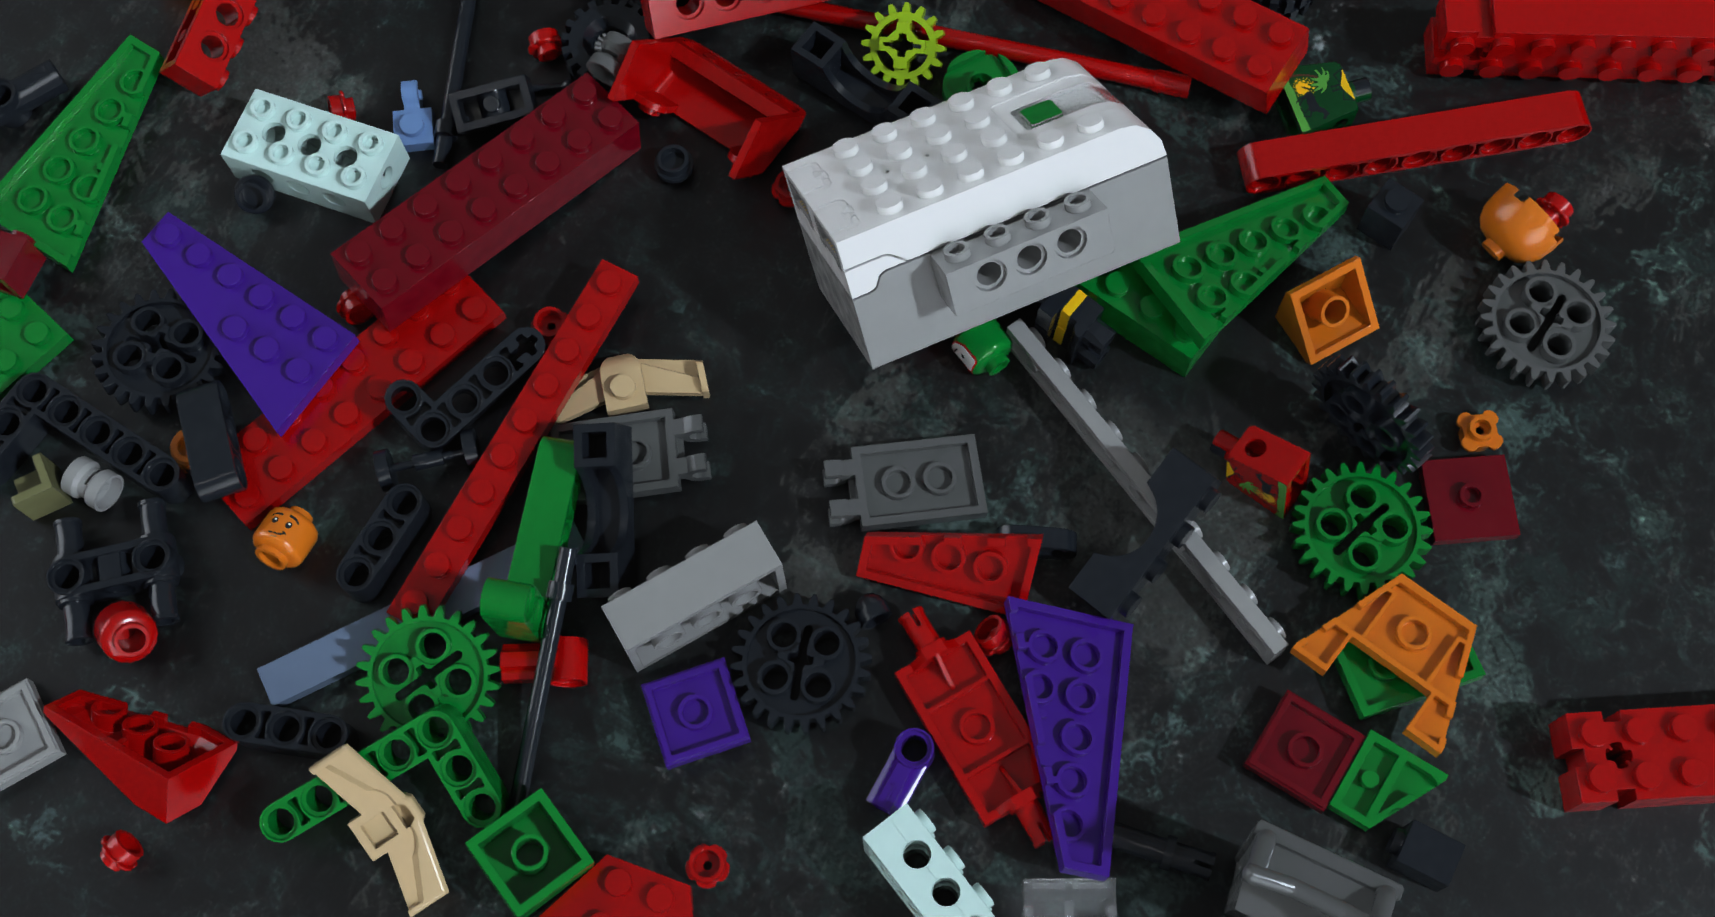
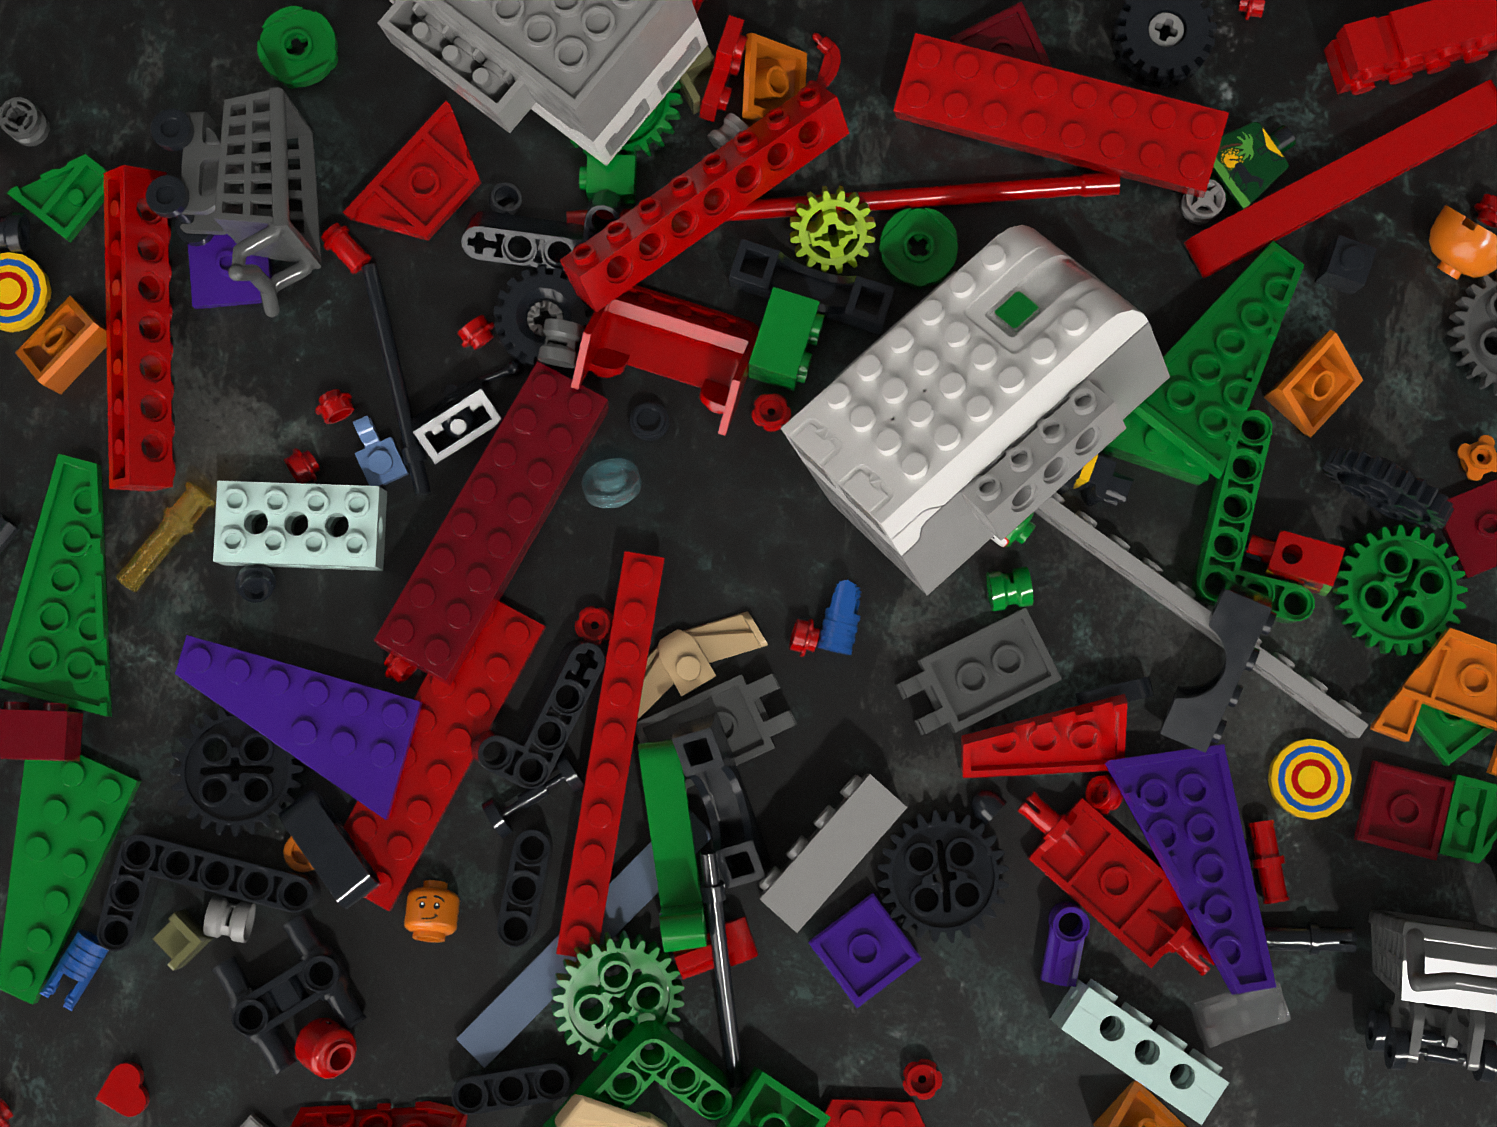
camera: 20 degrees left, 15 degrees up
(207, 123) = (177, 521): none -> clear yellow pin
(392, 69) = (335, 406): none -> red plate
(616, 203) = (611, 483): none -> clear light blue plate
(746, 395) = (804, 637): none -> red plate
(788, 389) = (841, 619): none -> blue hinge
(822, 113) = (783, 339): none -> green brick
(963, 410) = (1009, 588): none -> green wheel
(1144, 758) = (1268, 862): none -> red pin
(1206, 420) = (1237, 528): none -> green beam
(1213, 690) = (1309, 779): none -> yellow tile
(1275, 119) = (1213, 200): none -> light grey wheel

